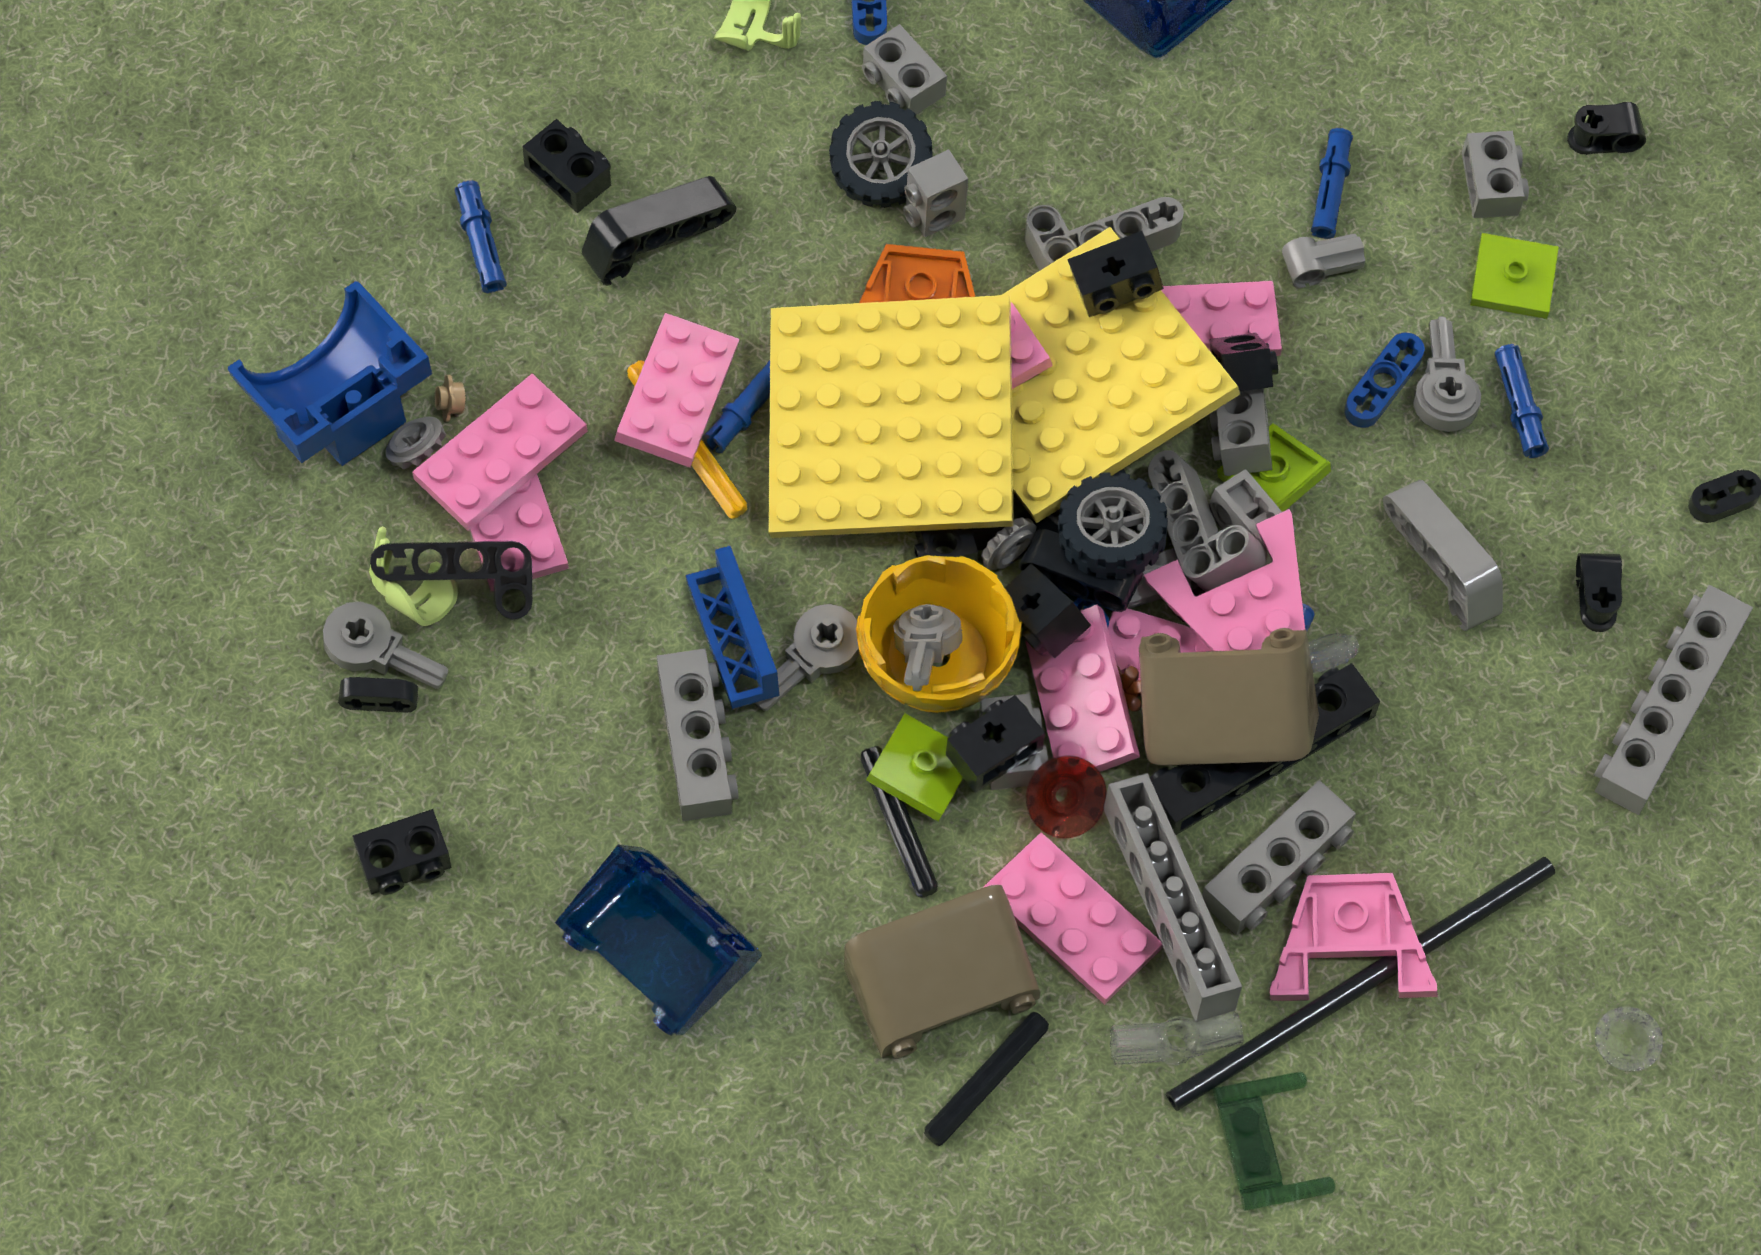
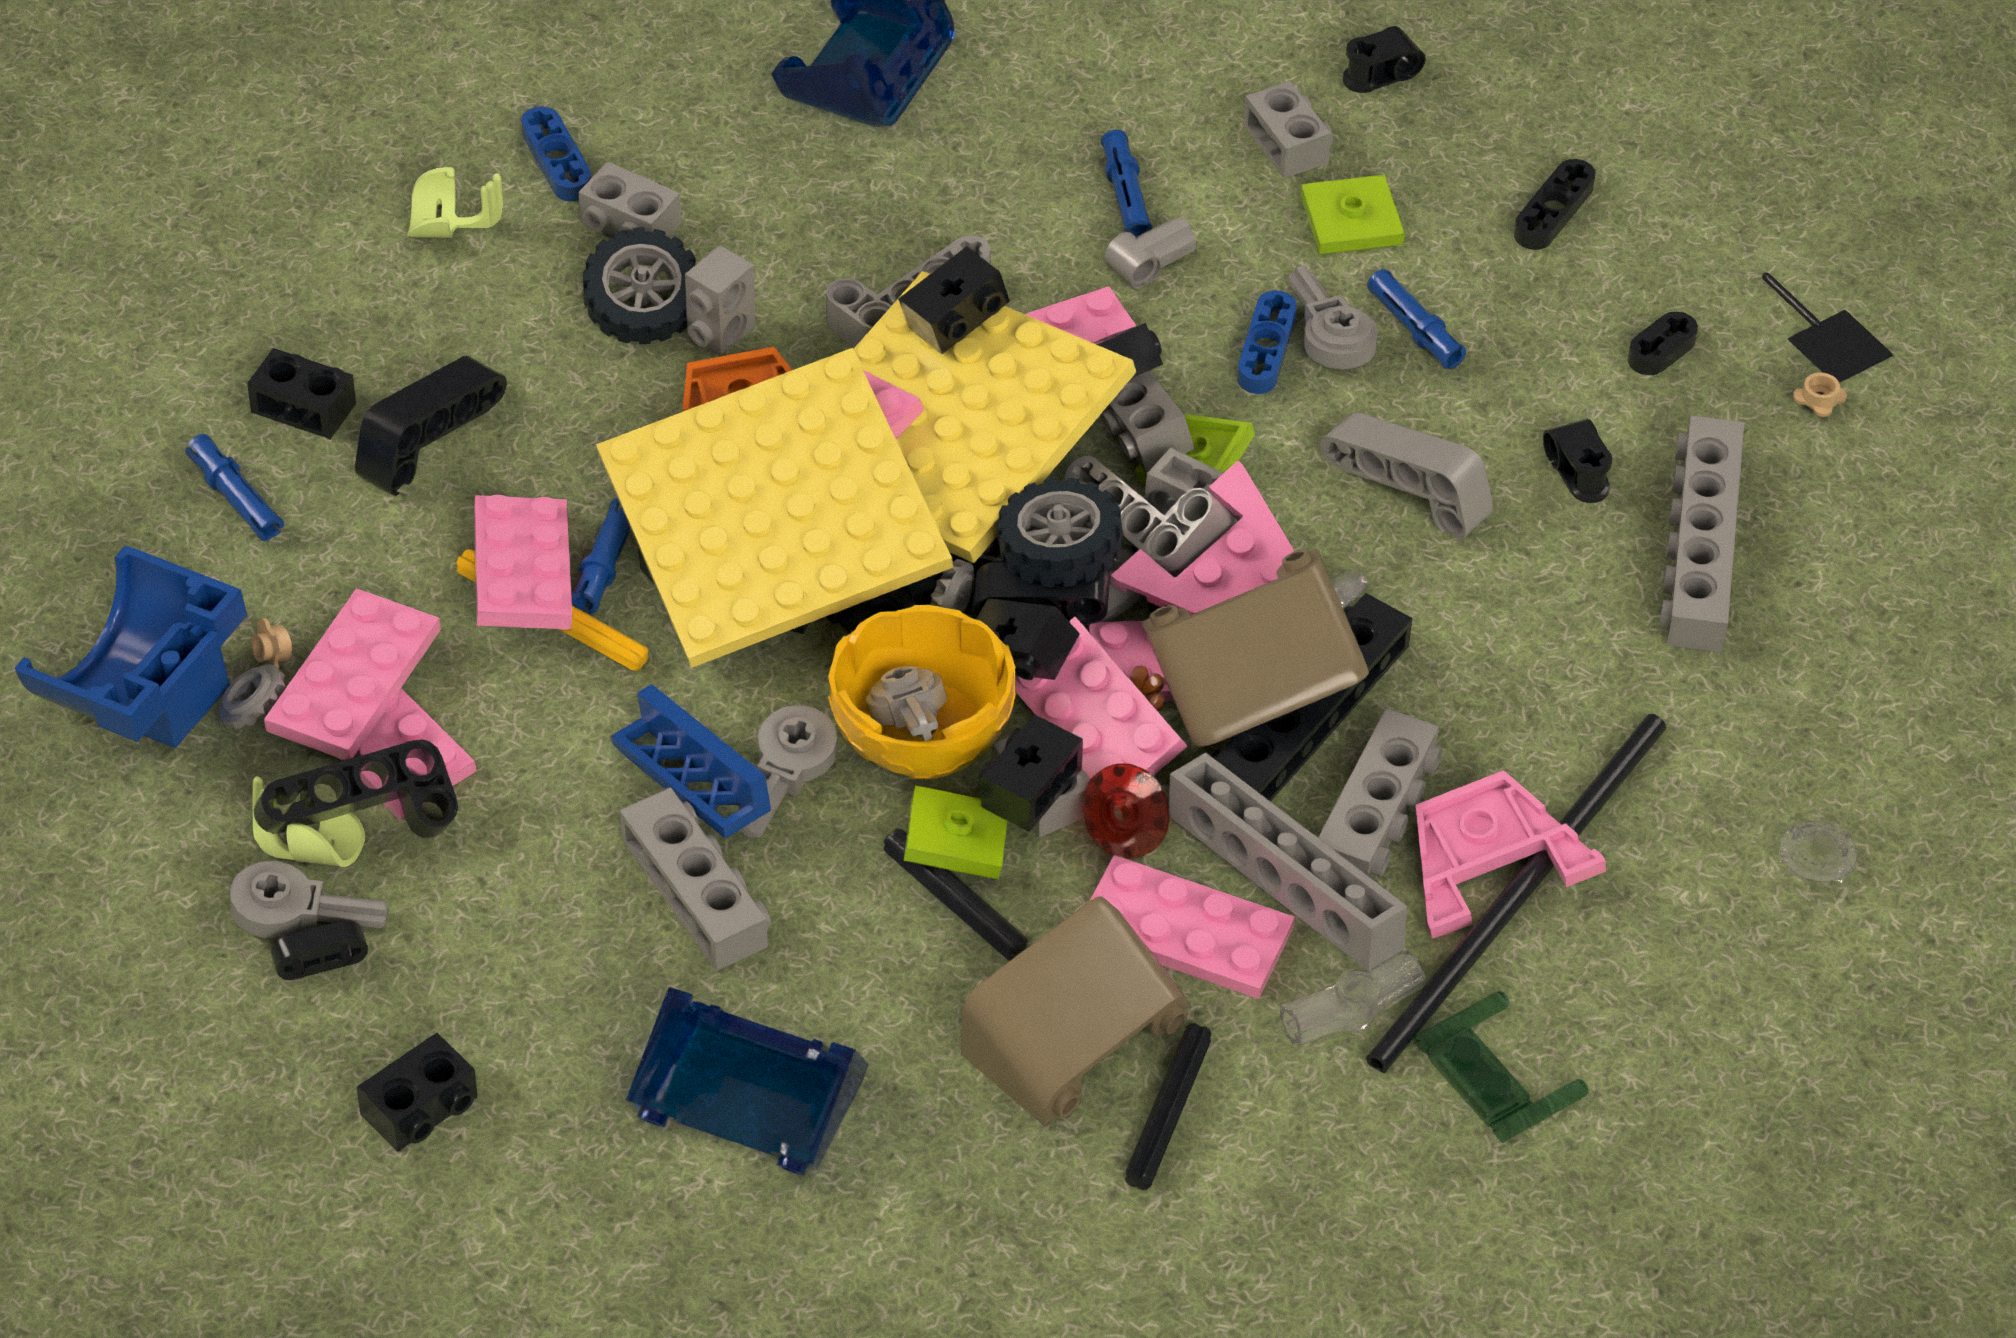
camera: 20 degrees left, 15 degrees down
(1698, 309) = (1554, 190): none -> black beam

